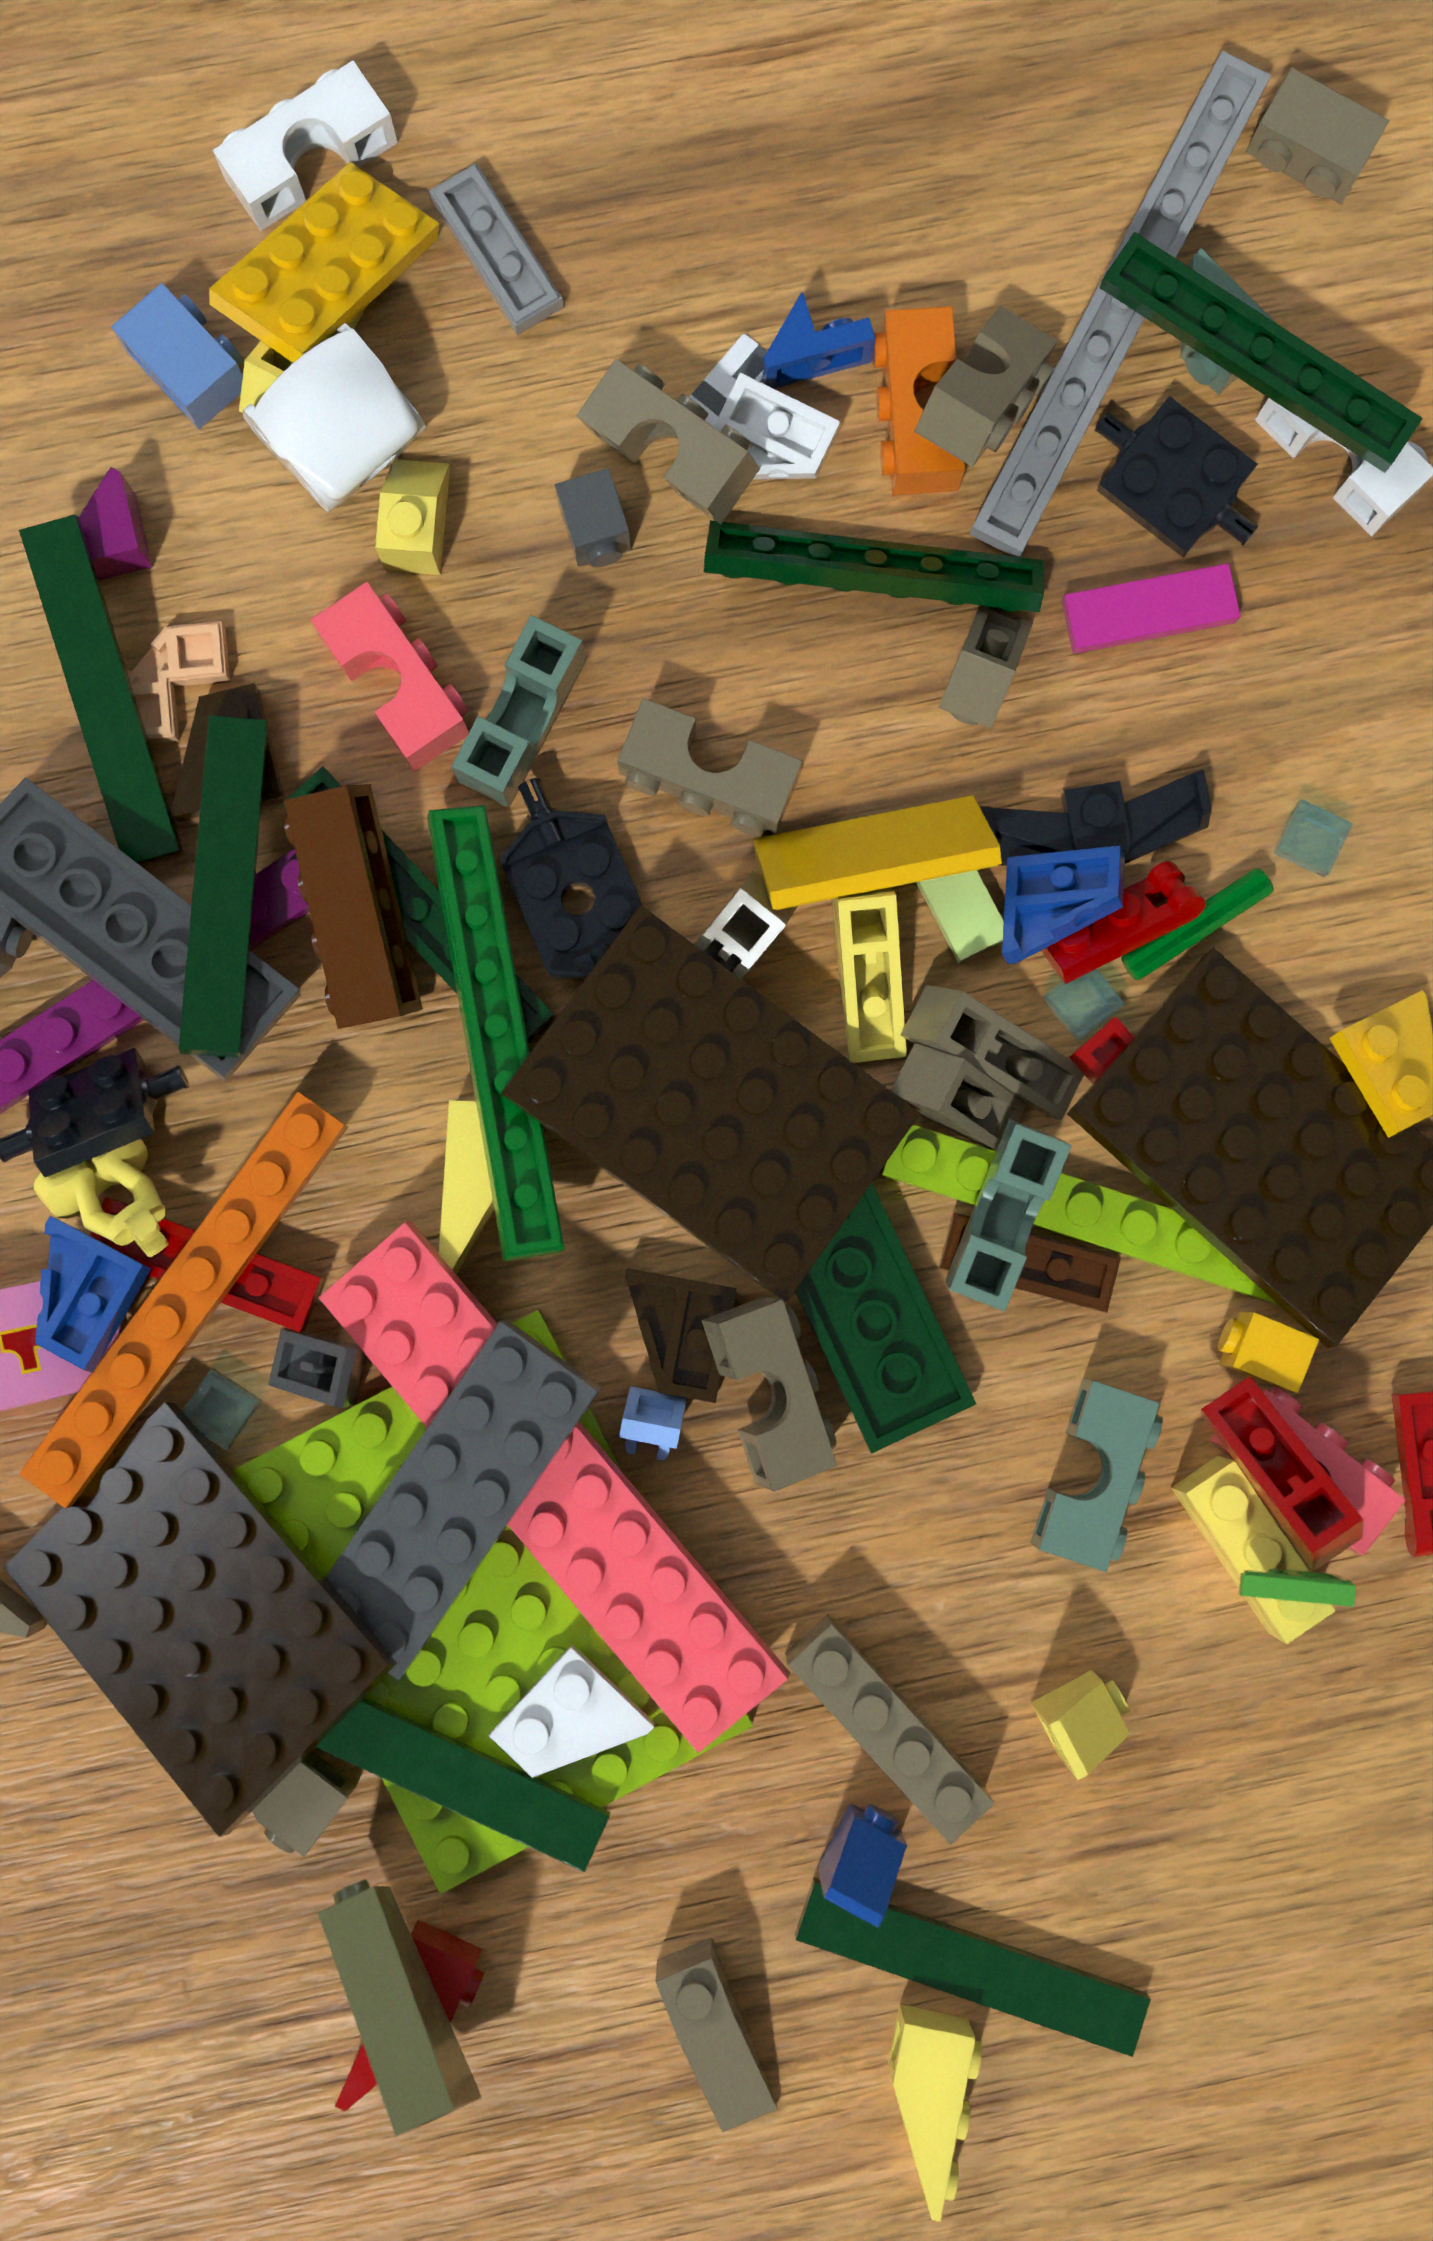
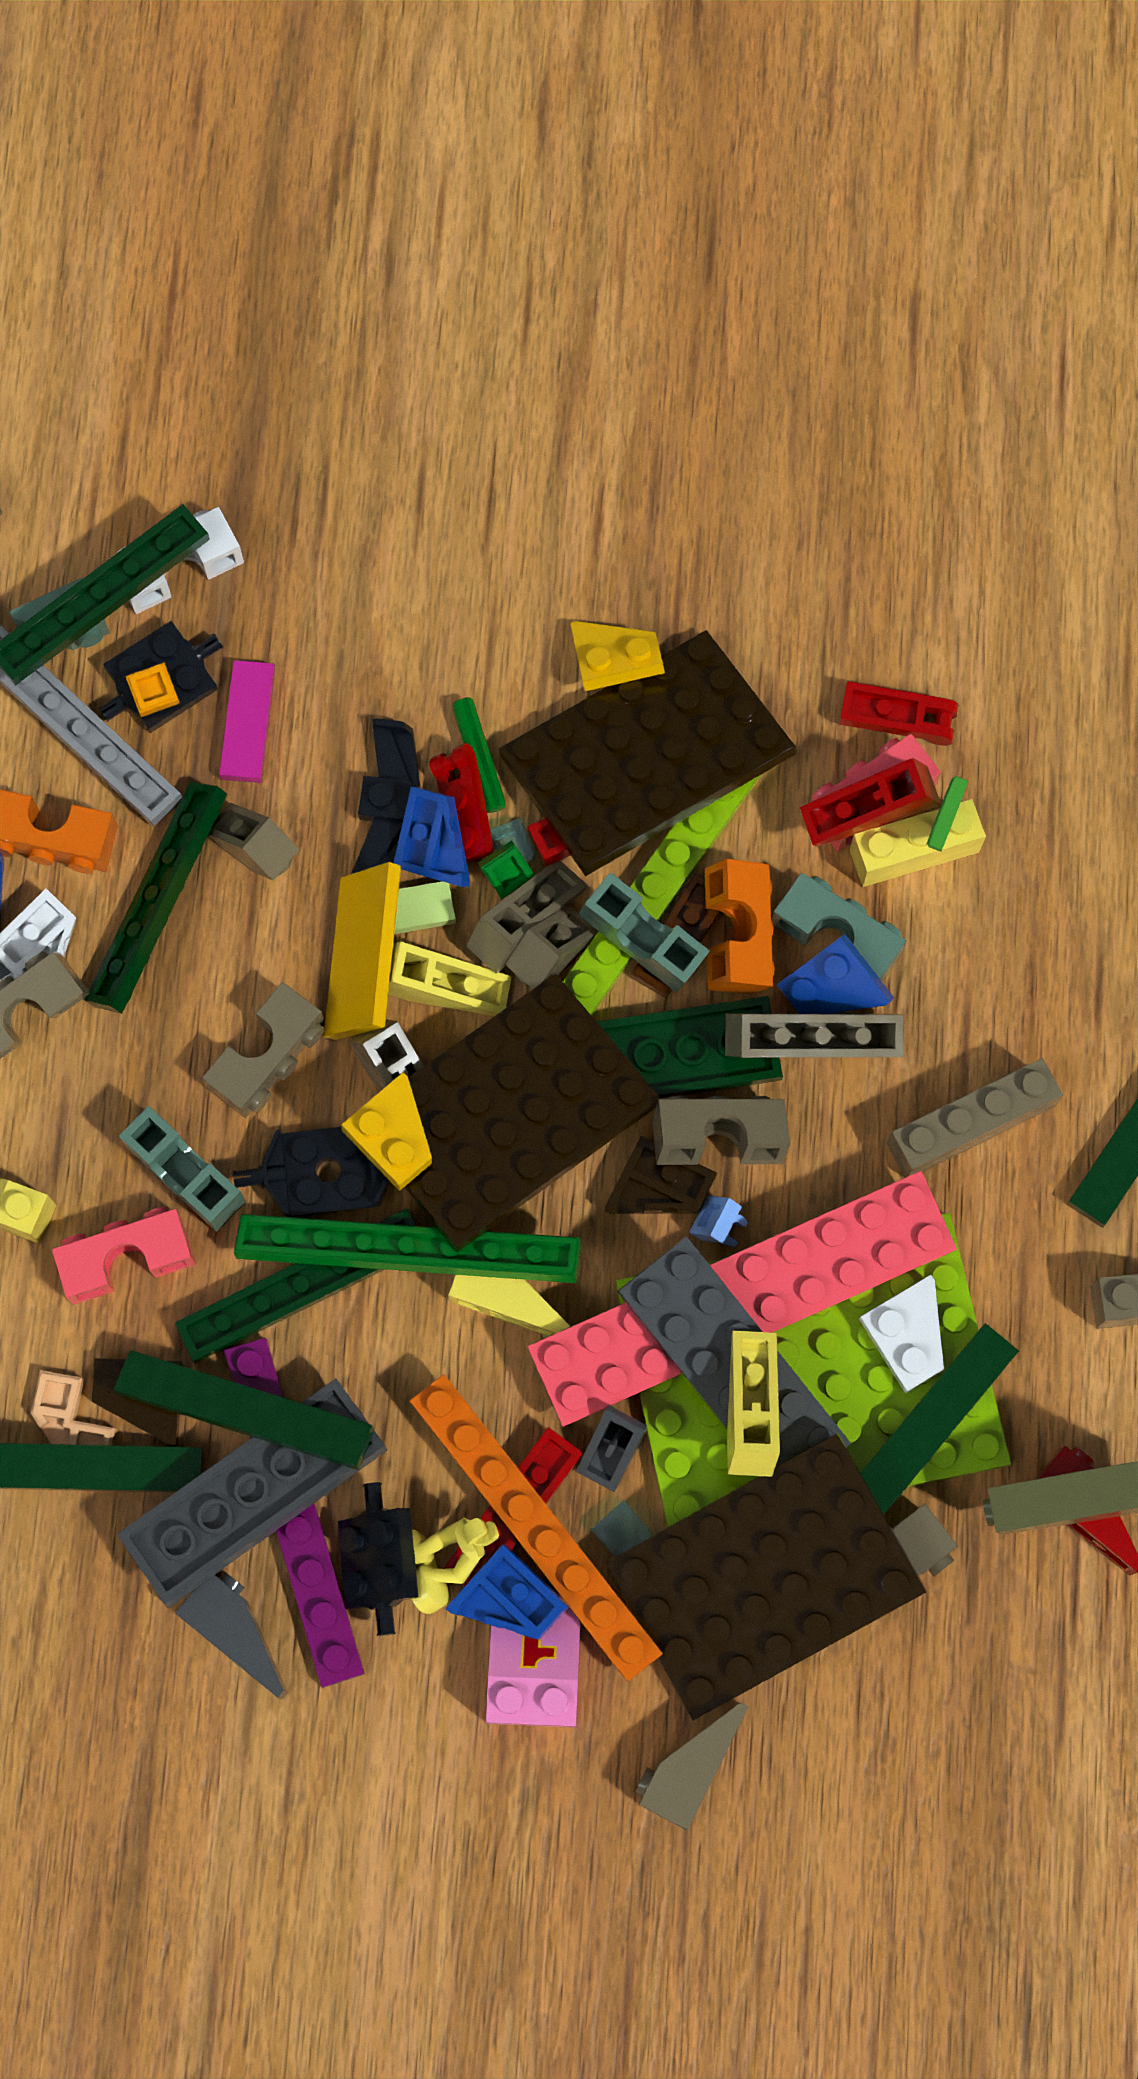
camera: 70 degrees left, 10 degrees down
(352, 905) = (287, 1325): reddish brown brick -> none
(398, 1542) = (753, 1404): none -> light yellow slope
(593, 518) = (56, 1080): dark grey brick -> none
(627, 961) = (391, 1133): none -> yellow wing
(863, 1862) = (1059, 1159): blue slope -> none
(933, 1483) = (813, 1035): none -> dark tan brick
(991, 390) = (61, 777): dark tan arch -> none
(1020, 1490) = (835, 982): none -> blue wing
(1047, 1007) = (506, 869): none -> green tile
(1083, 1721) = (1004, 988): light yellow slope -> none
(1104, 1335) = (744, 895): none -> orange arch
(1151, 468) = (152, 689): none -> light orange tile
(1266, 1351) = (785, 793): yellow brick -> none
(1313, 838) = (443, 662): clear light blue tile -> none

